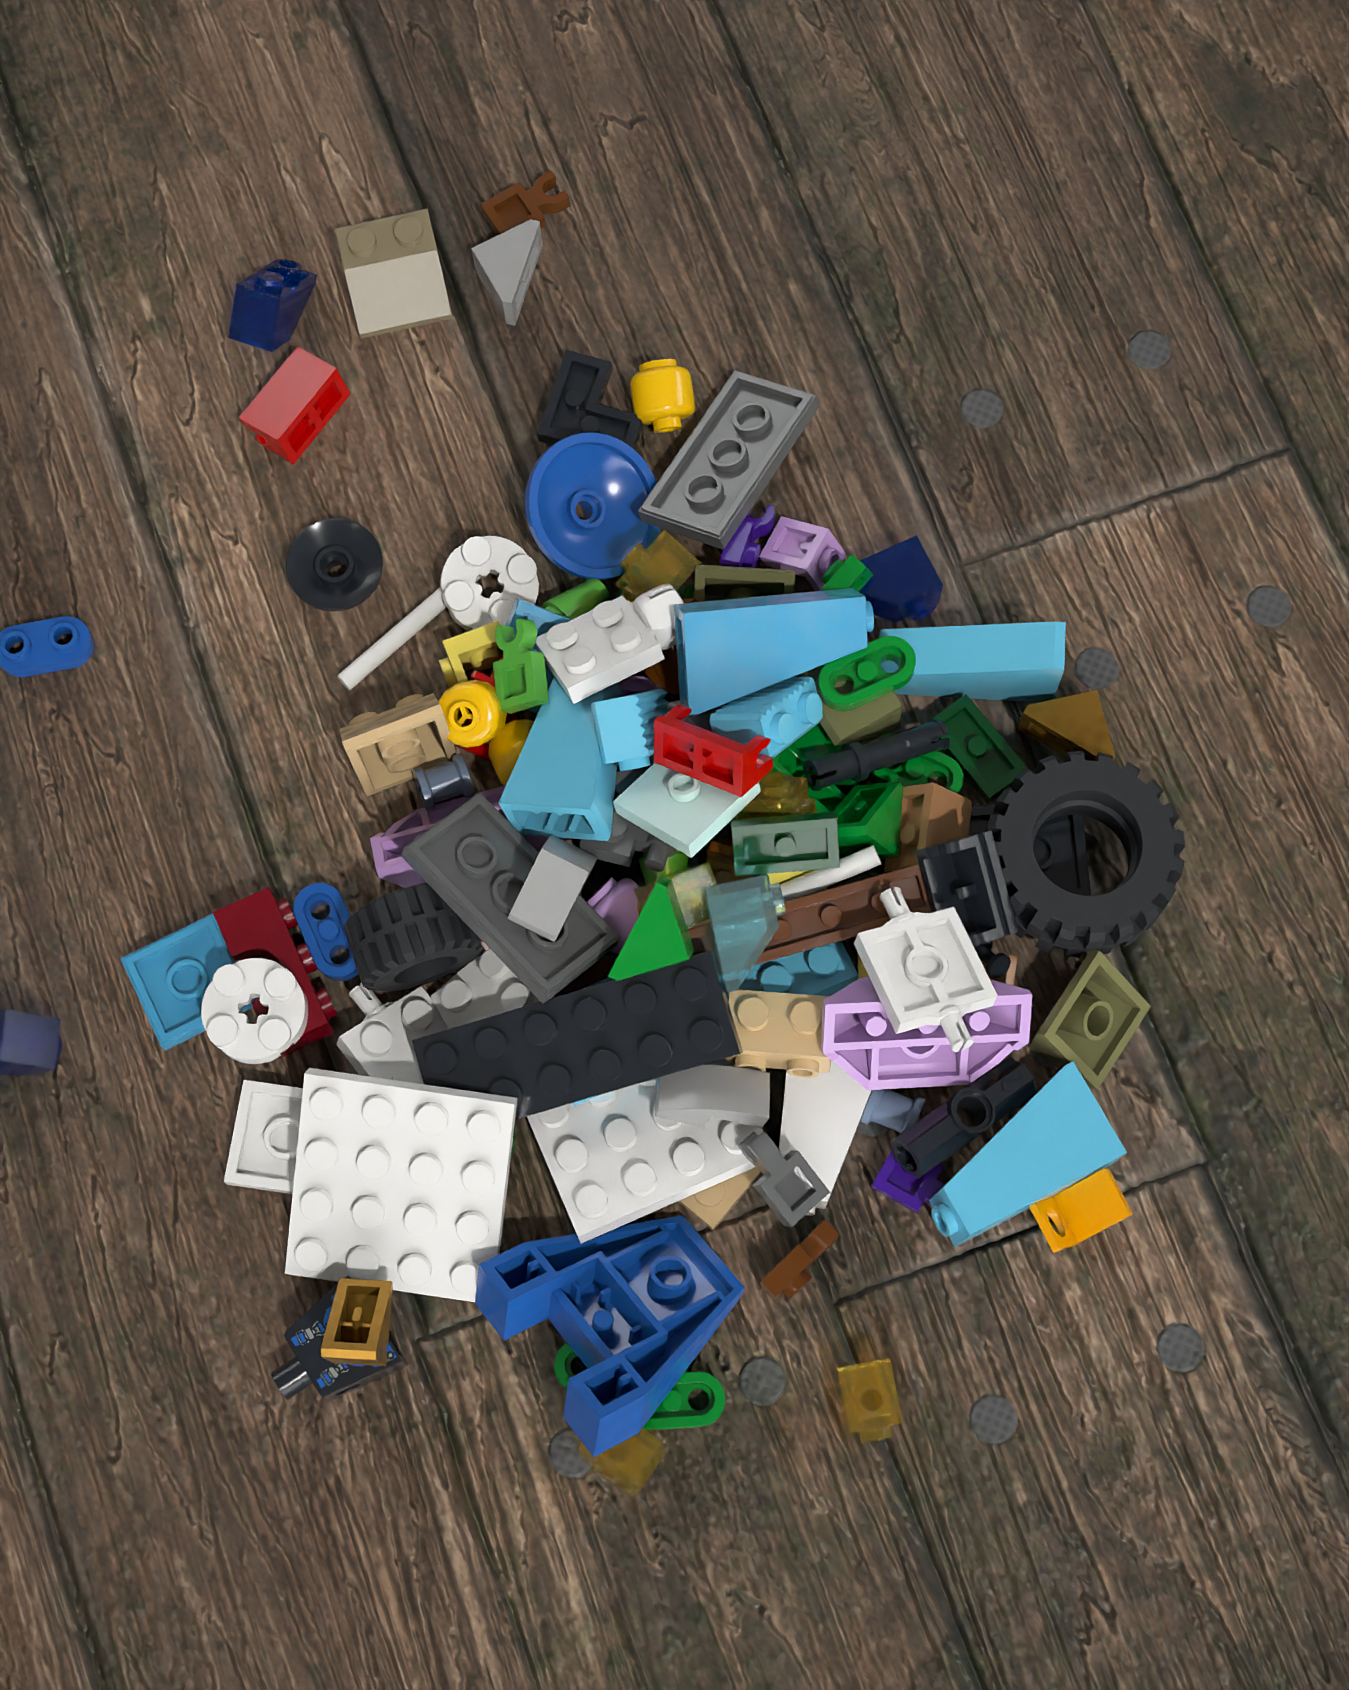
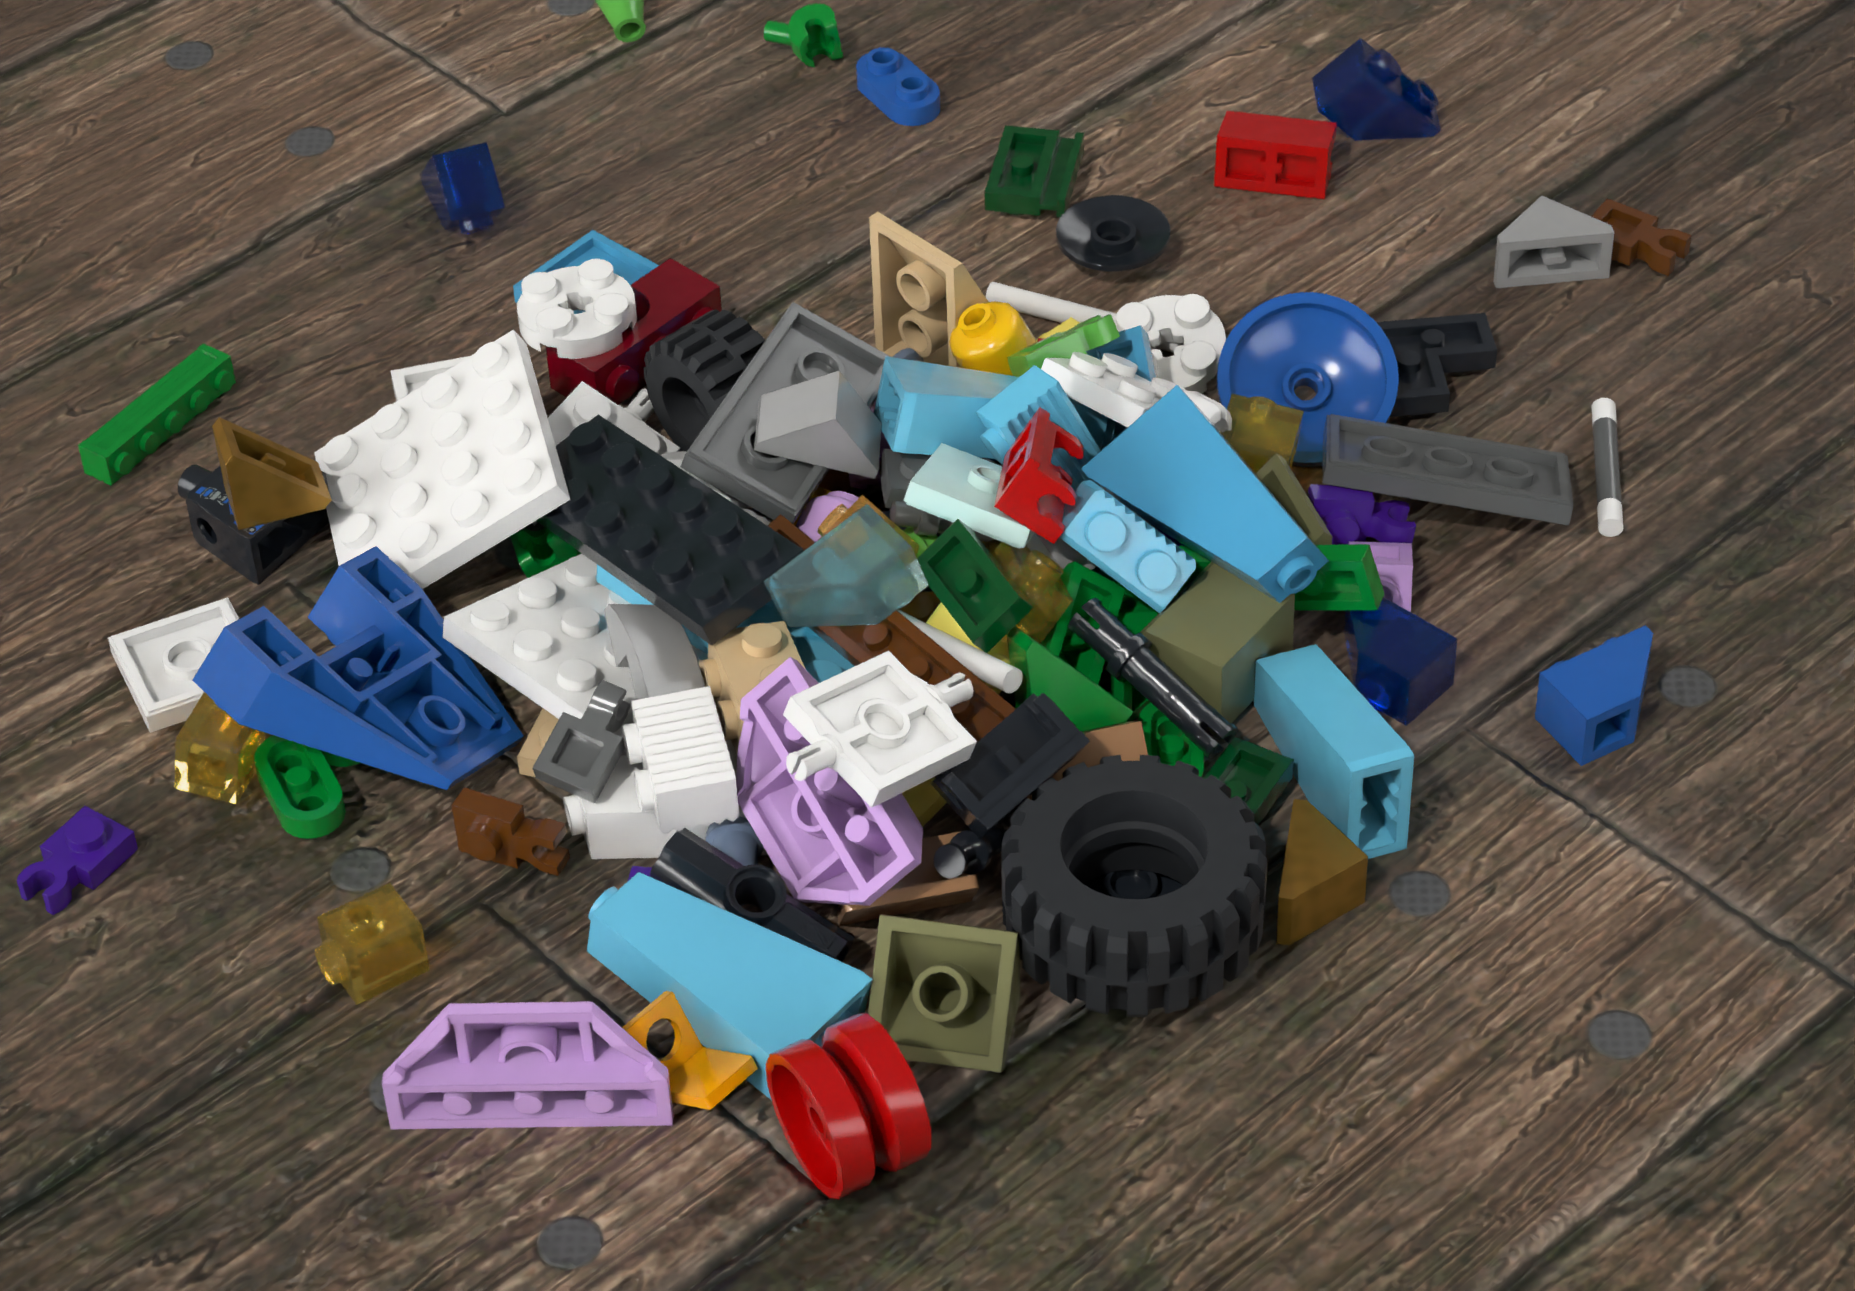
camera: 65 degrees right, 30 degrees down
(170, 1387) = (157, 414): none -> green piece
(220, 589) = (1033, 171): none -> dark green plate
(393, 273) = (1479, 167): slope -> none
(495, 1448) = (164, 658): none -> white plate
(657, 936) = (804, 497): green slope -> none
(661, 1588) = (79, 852): none -> dark purple plate
(662, 395) = (1488, 401): yellow head -> none
(752, 349) = (1607, 467): none -> bar
(827, 1114) = (683, 760): none -> white brick
(865, 674) = (1233, 609): green plate -> none
(991, 465) = (1596, 697): none -> blue slope
(1040, 1326) = (525, 1071): none -> lavender wedge
(1186, 1121) = (848, 1105): none -> red wheel

